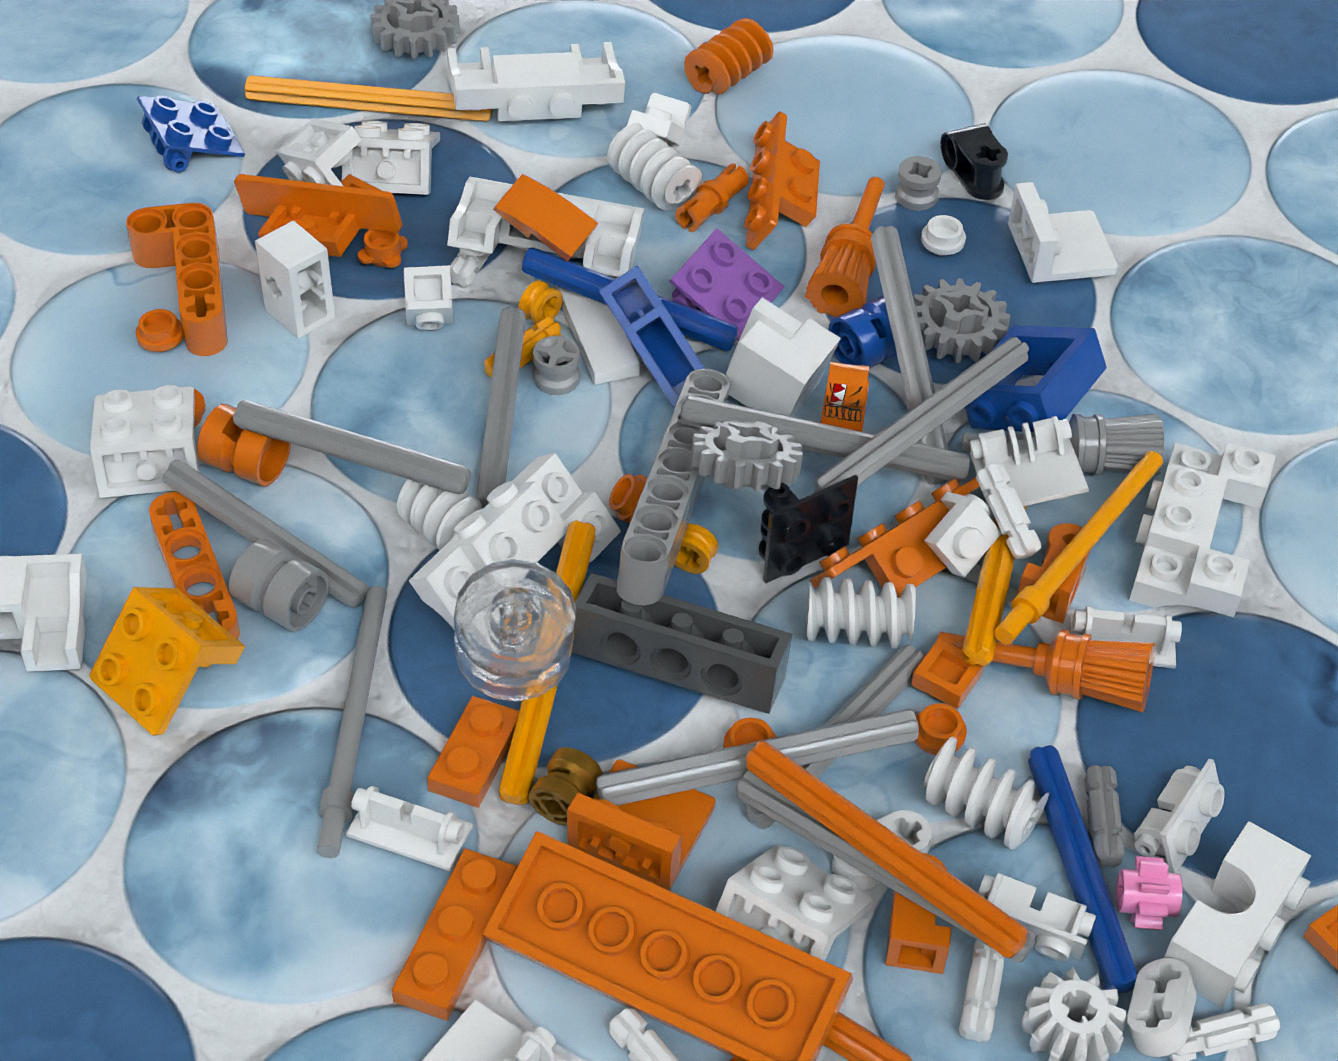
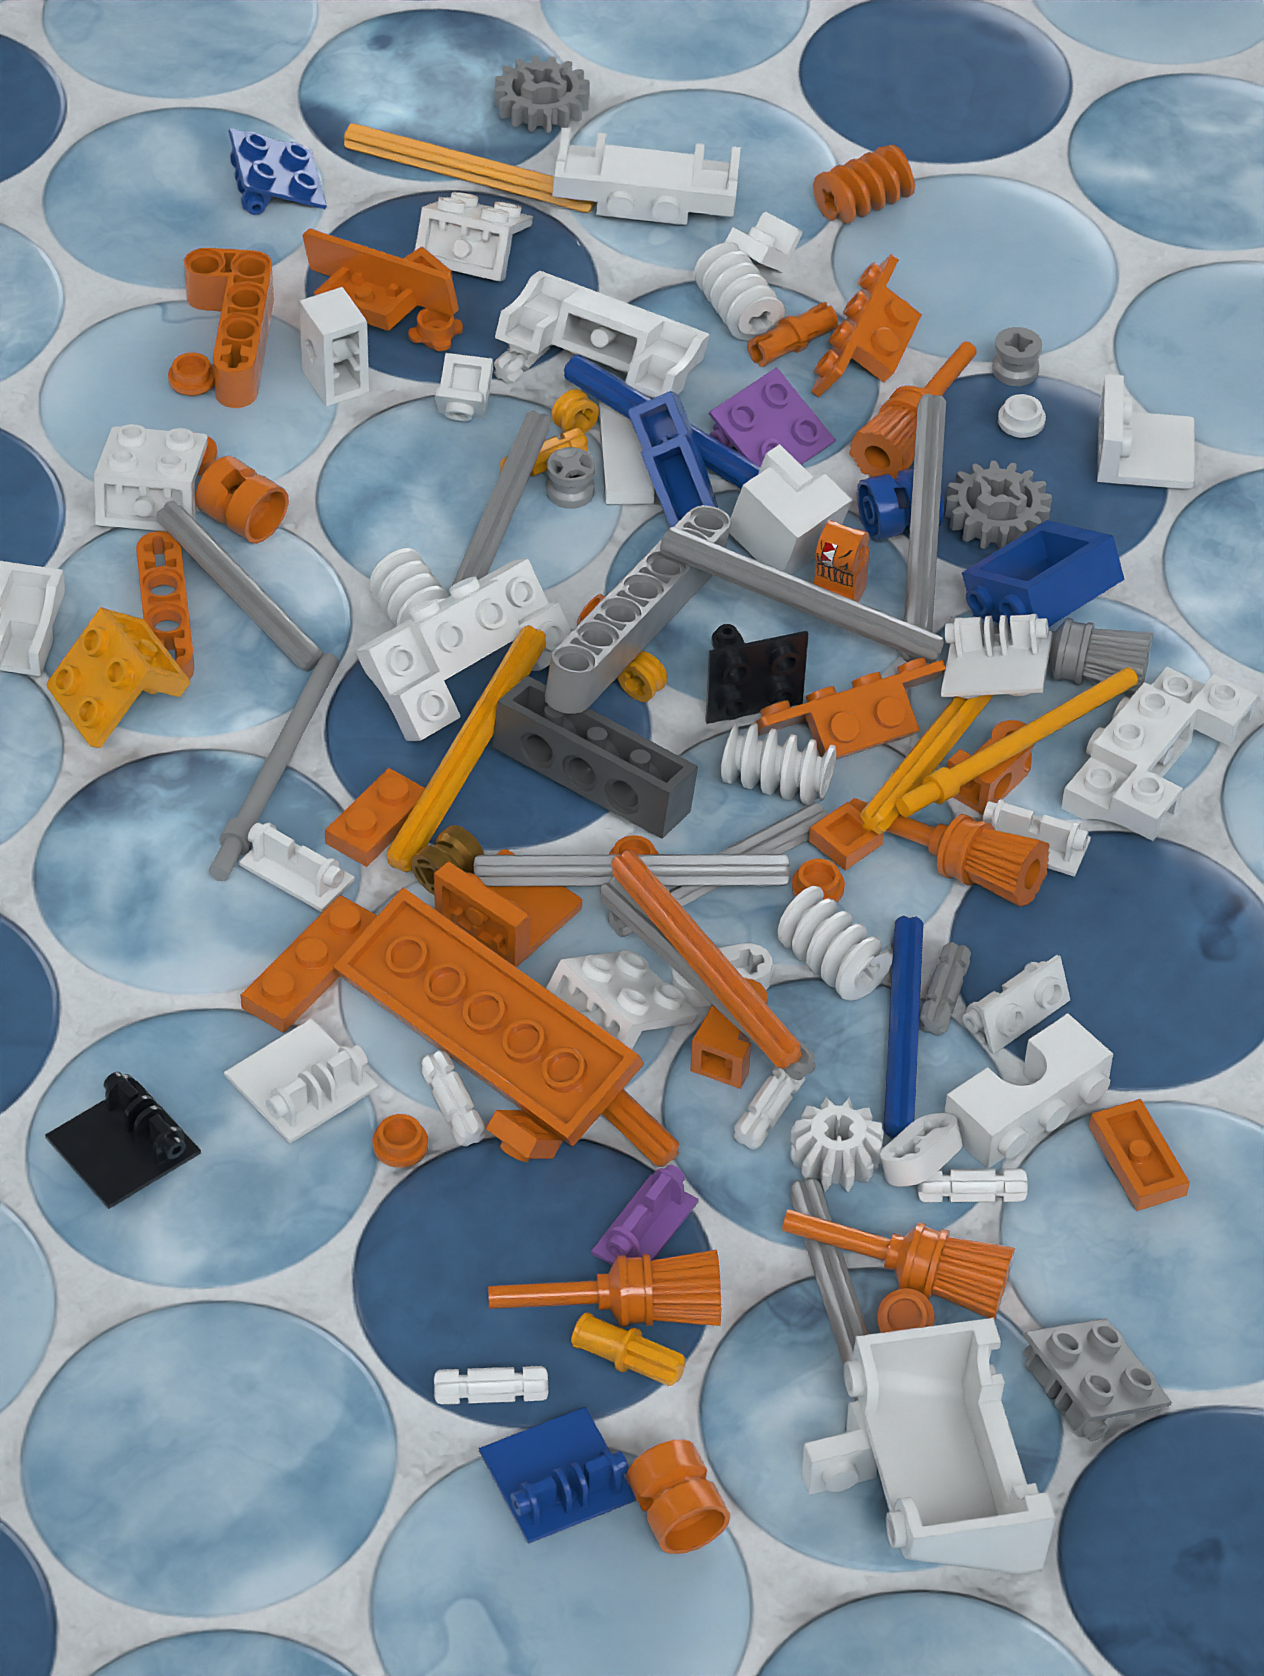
camera: 15 degrees right, 0 degrees up
(276, 583) = (238, 634): light grey wheel -> none
(317, 150) = (391, 216): white bracket -> none
(352, 447) = (337, 517): light grey axle -> none
(514, 629) = (434, 710): clear wheel -> none
(546, 215) = (597, 325): orange slope -> none
(746, 455) = (707, 593): light grey gear -> none
(927, 415) = (912, 588): light grey axle -> none
(963, 533) = (906, 709): white bracket -> none
(975, 159) = (1089, 341): black piece -> none
(1008, 511) = (955, 696): white axle -> none
(1053, 926) = (848, 1069): white hinge -> none
(1149, 893) = (951, 1056): bright pink gear -> none

